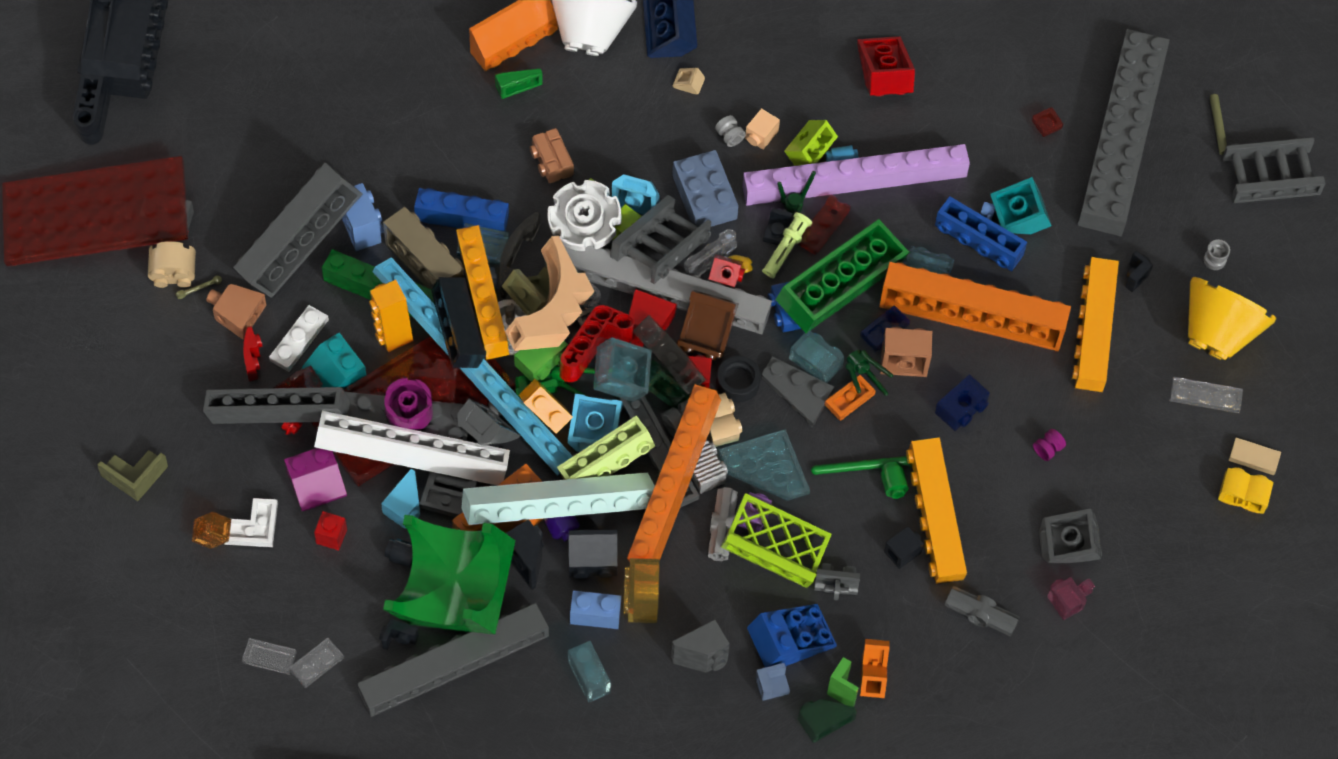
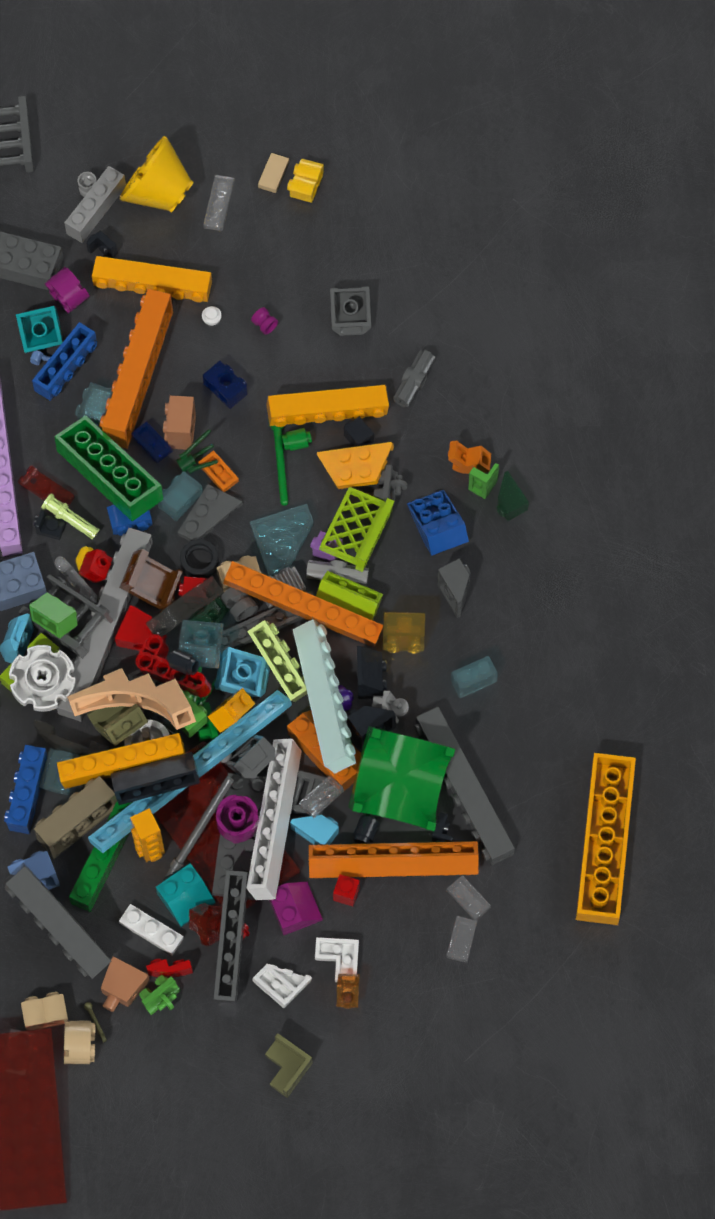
camera: 85 degrees left, 5 degrees up
(210, 236) = (44, 1011): none -> tan brick
(220, 347) = (160, 996): none -> bright green hips
(227, 465) = (280, 984): none -> white wing
(363, 579) = (393, 859): none -> orange brick
(370, 359) = (178, 863): none -> dark grey bar
(438, 500) = (321, 796): none -> clear plate
(549, 574) = (389, 702): none -> light grey hips
(591, 342) = (183, 662): none -> black brick
(595, 609) = (418, 672): medium blue brick -> none
(655, 219) = (53, 615): none -> bright green brick
(689, 532) = (349, 595): none -> lime brick
(772, 681) = (479, 538): sand blue panel -> none
(794, 201) = (25, 510): dark green plant -> none
(861, 543) = (356, 465): none -> light orange wing
(1054, 389) = (211, 315): none -> white plate
(1069, 597) = (401, 314): clear pink brick -> none
(1072, 233) = (66, 289): none -> magenta brick
(1188, 259) = (95, 204): none -> light grey brick

